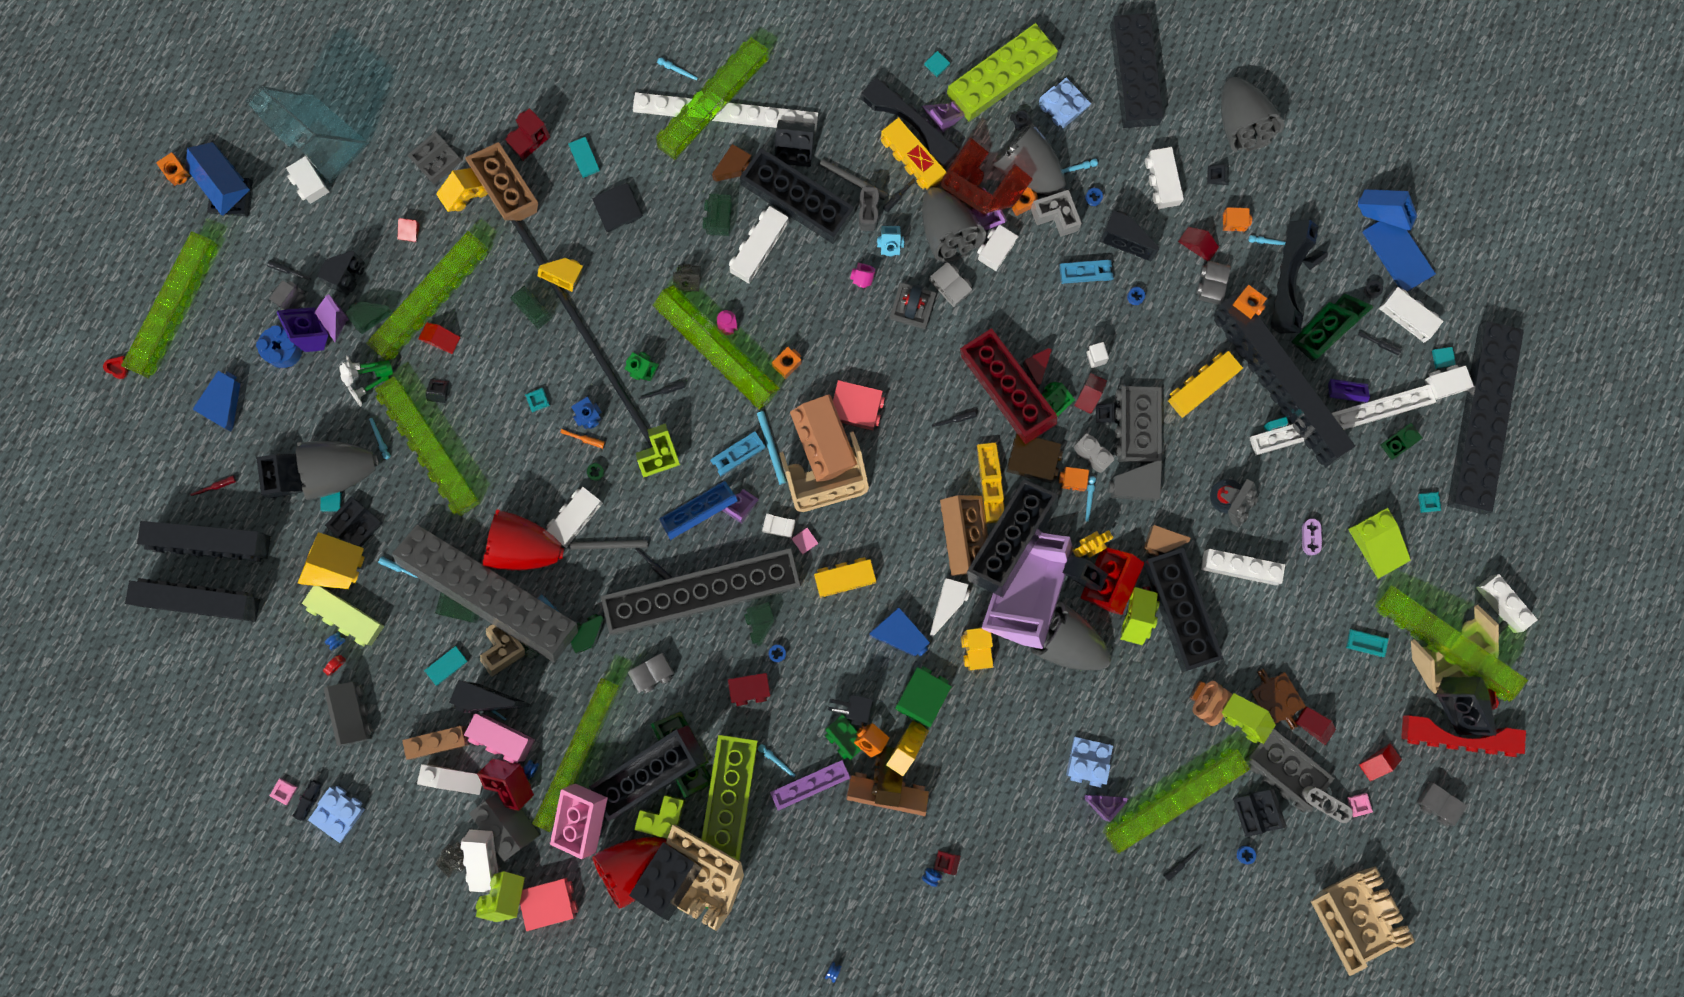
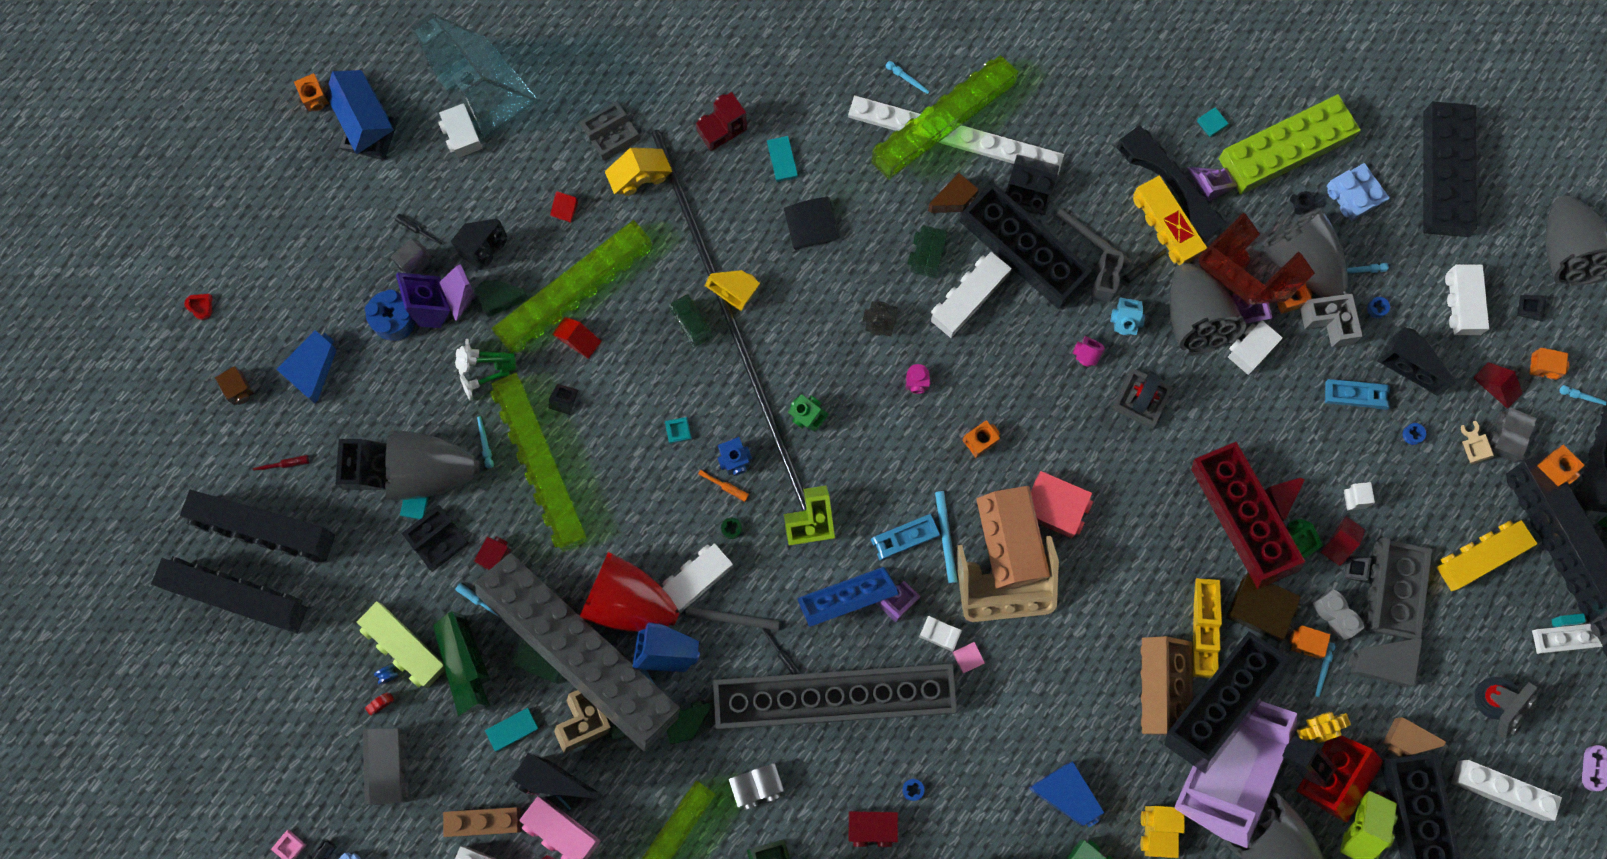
camera: 15 degrees right, 5 degrees down
(160, 429) = (234, 386): none -> reddish brown brick
(170, 305) = (275, 245): clear neon green brick -> none
(331, 563) = (401, 580): yellow slope -> none
(395, 620) = (462, 663): none -> dark green slope
(402, 527) = (492, 552): none -> dark red brick
(503, 183) = (685, 172): medium nougat slope -> none
(557, 579) = (664, 649): none -> blue slope
(667, 389) = (832, 445): black piece -> none
(716, 347) = (900, 405): clear neon green brick -> none
(761, 621) = (900, 745): clear green slope -> none
(844, 577) = (1010, 711): yellow brick -> none
(950, 284) = (1192, 380): light grey brick -> none
(951, 598) = (1136, 763): white slope -> none
(958, 418) = (1177, 542): black piece -> none
(1187, 297) = (1477, 446): none -> tan plate

